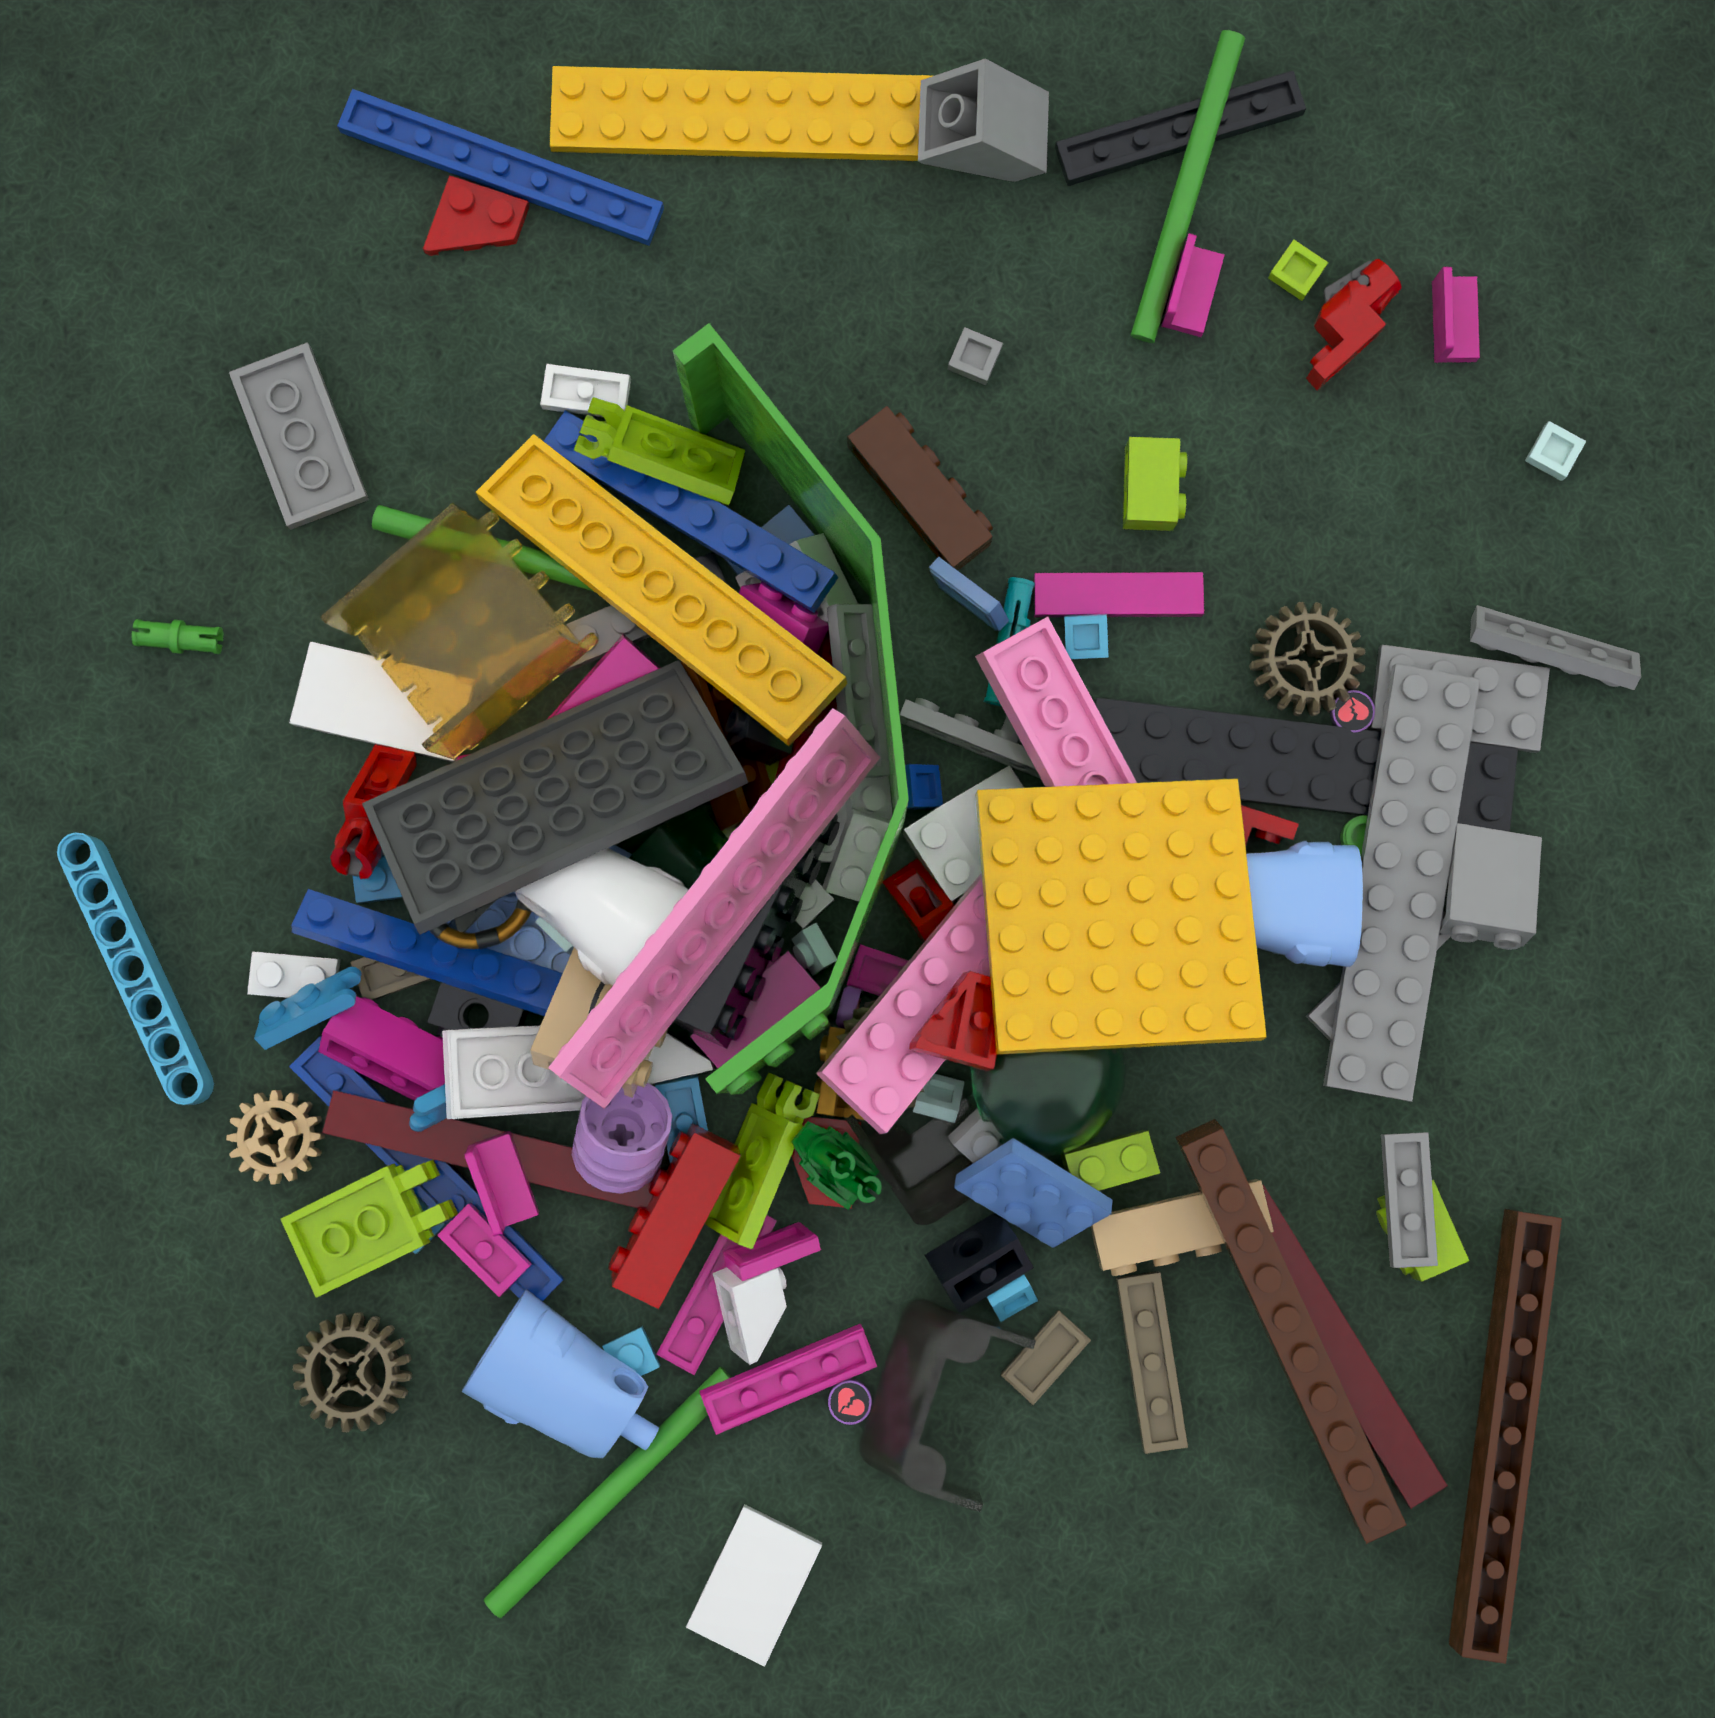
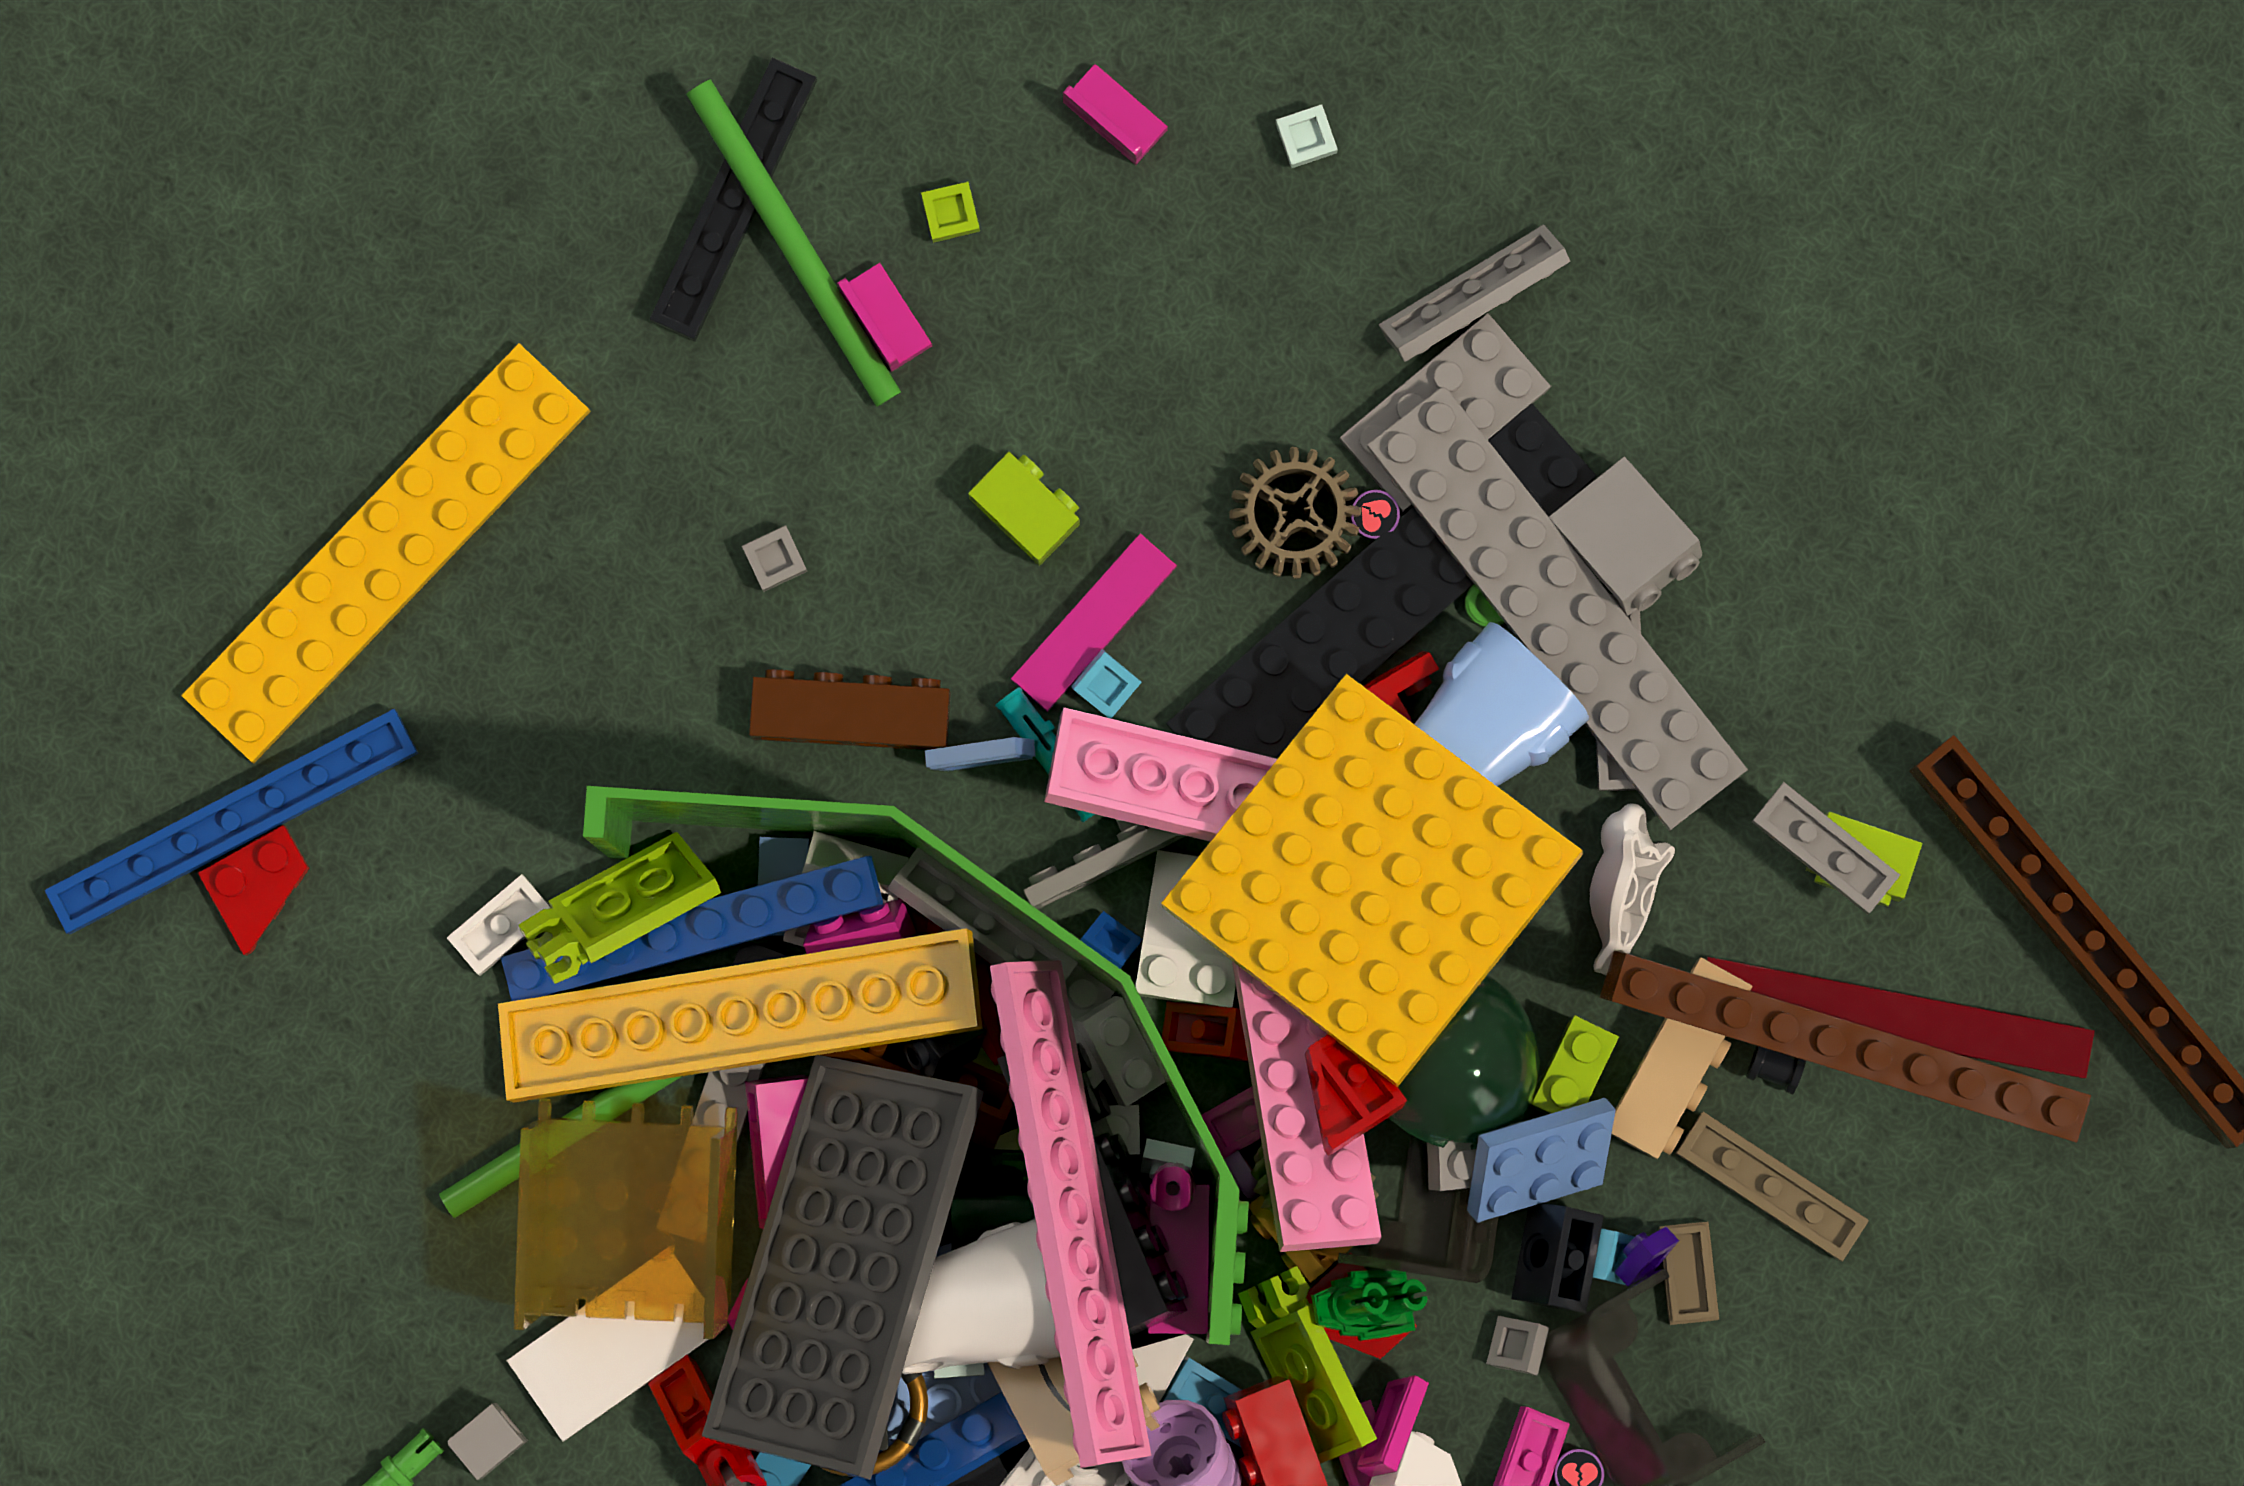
camera: 45 degrees left, 0 degrees up
(246, 674) = (487, 1441): none -> light grey panel
(298, 436) = (313, 1210): light grey plate -> none
(810, 961) = (1173, 1172): none -> dark pink piece
(897, 1286) = (1517, 1345): none -> light grey plate
(940, 1098) = (1391, 1166): light aqua plate -> none
(984, 122) = (580, 370): light grey slope -> none
(1032, 1318) = (1645, 1255): none -> dark purple plate
(1232, 1295) = (1776, 1068): none -> black bush
(1264, 1086) = (1625, 881): none -> white animal
(1351, 317) = (1031, 206): red plate -> none

